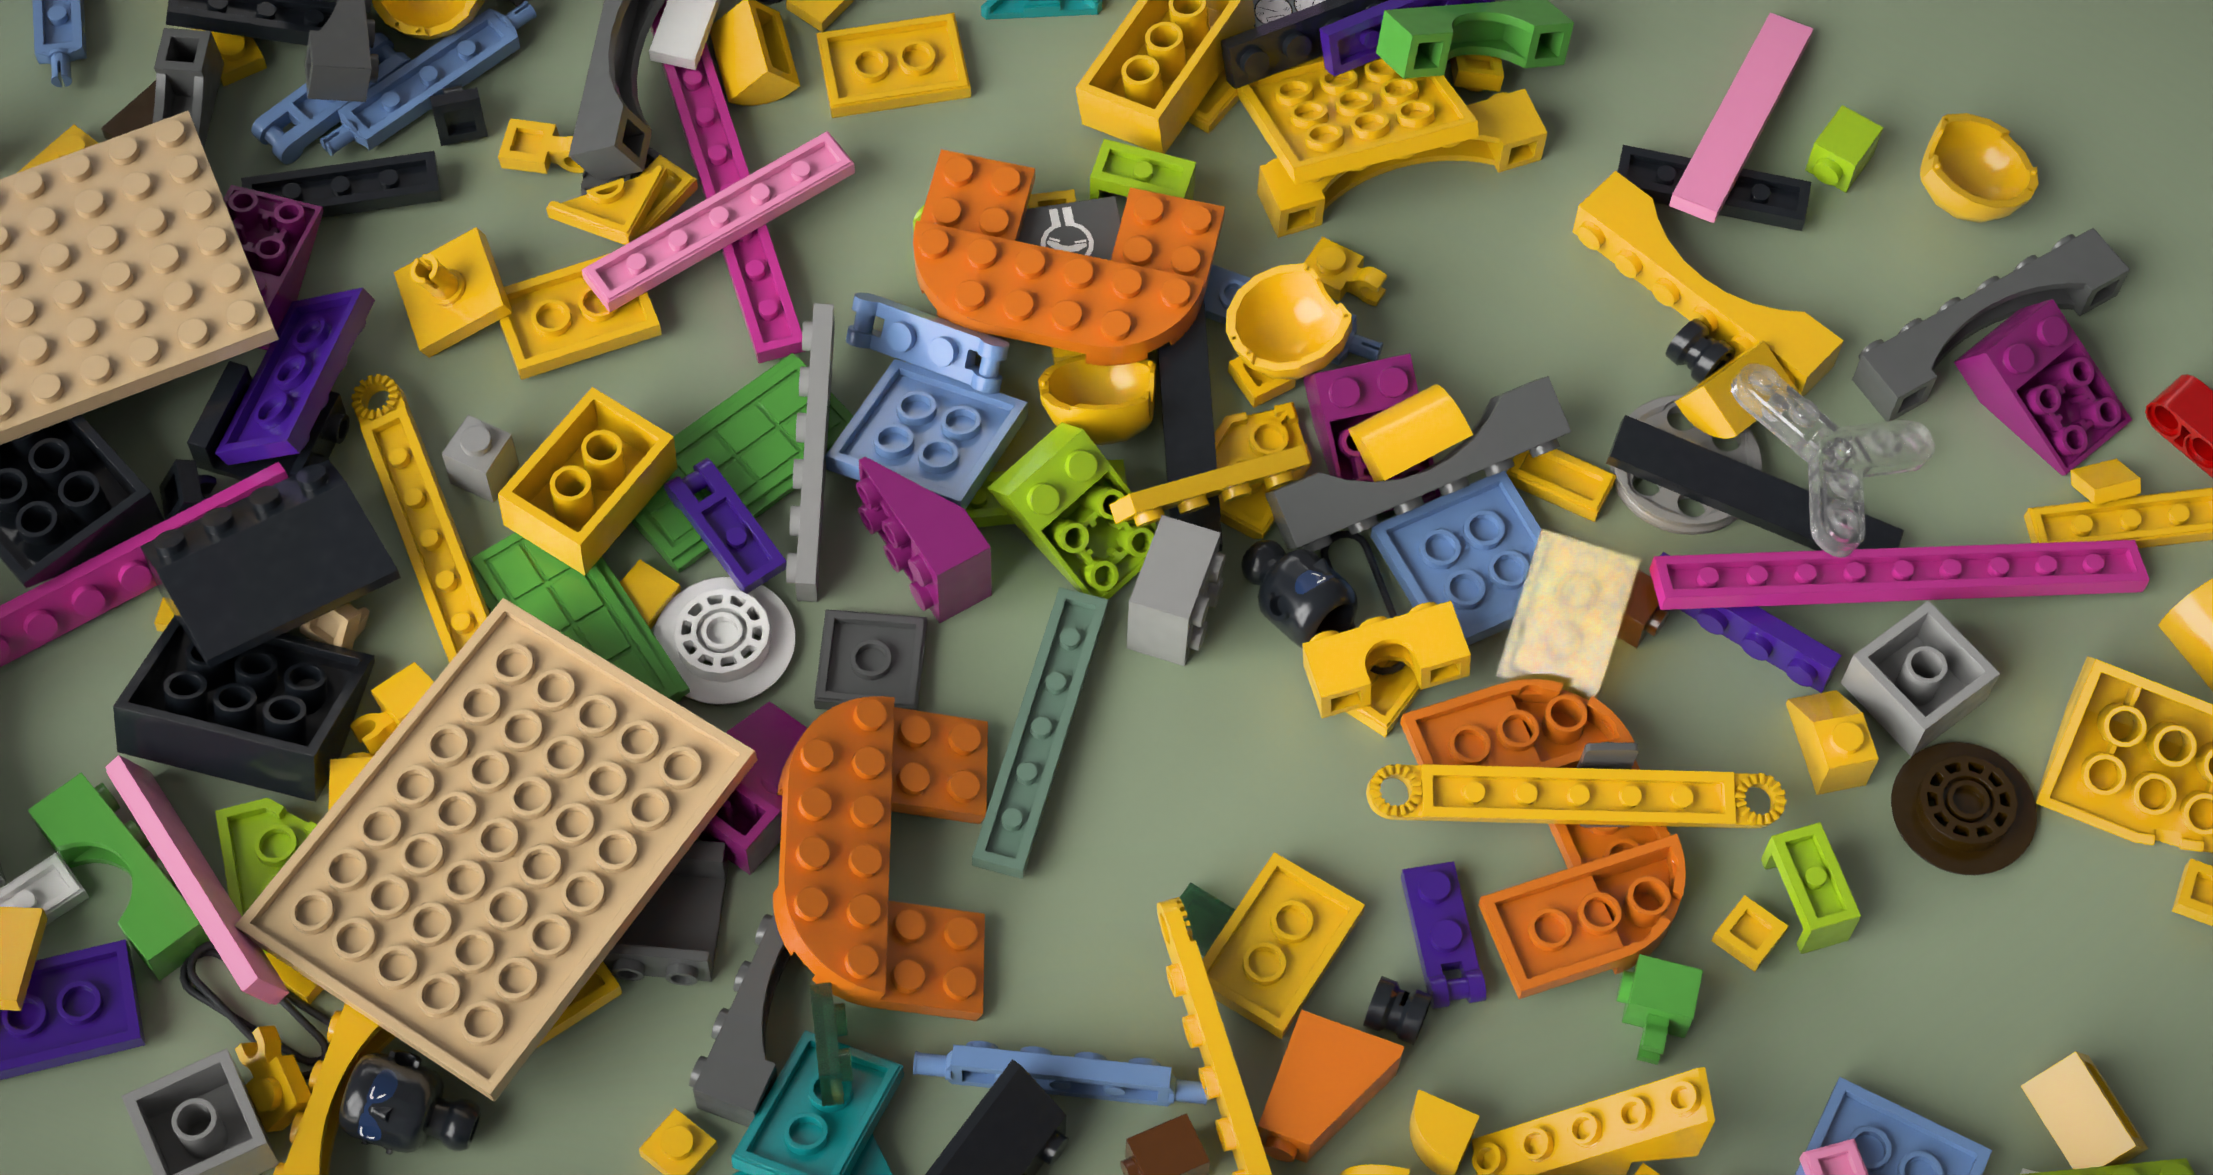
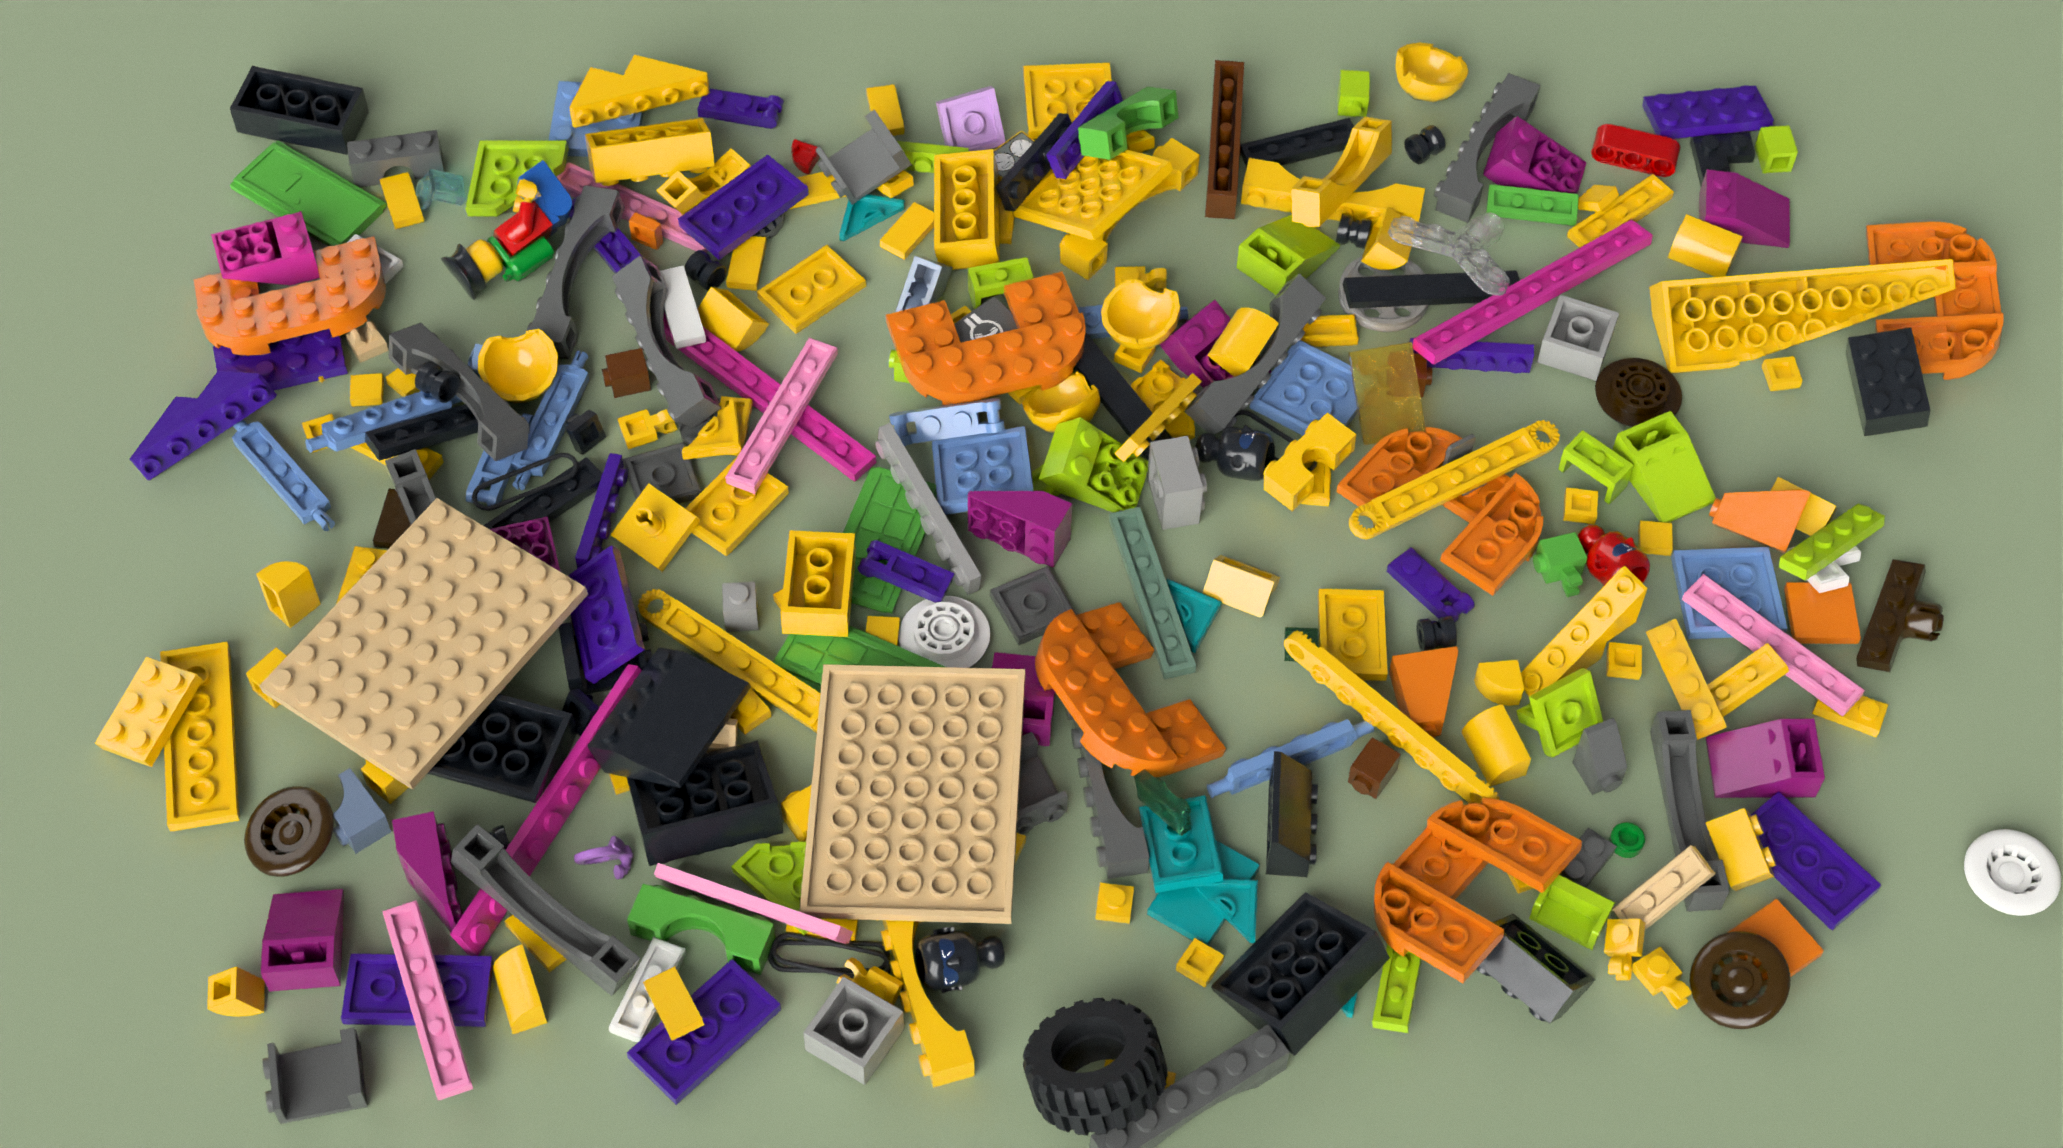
camera: 30 degrees left, 5 degrees down
(97, 707) = (615, 850): none -> medium lavender piece
(332, 127) = (530, 492): none -> black piece
(396, 699) = (796, 757): yellow brick -> none
(397, 609) = (751, 712): none -> yellow plate
(403, 233) = (604, 504): none -> dark purple plate
(519, 227) = (665, 471): none -> dark grey tile
(562, 60) = (626, 373): none -> reddish brown brick
(1039, 131) = (924, 283): none -> sand blue arch
(1072, 47) = (908, 231): none -> yellow tile
(1083, 791) = (1195, 612): none -> teal tile
(1172, 785) = (1240, 585): none -> yellow panel
(1578, 333) = (1282, 251): none -> lime slope
(1602, 127) = (1224, 140): none -> reddish brown brick
(1737, 1041) = (1610, 553): none -> red piece
(1741, 118) = (1291, 101): bright pink tile -> none
(1798, 240) = (1365, 151): none -> yellow arch
(1832, 1042) = (1655, 537): none -> yellow tile
(1833, 741) = (1555, 390): yellow slope -> none
(1897, 274) = (1423, 145): none -> black wheel
(1914, 945) = (1665, 467): none -> lime slope
(1997, 443) = (1532, 204): none -> bright green plate
(2010, 1099) = (1761, 515): none -> orange slope

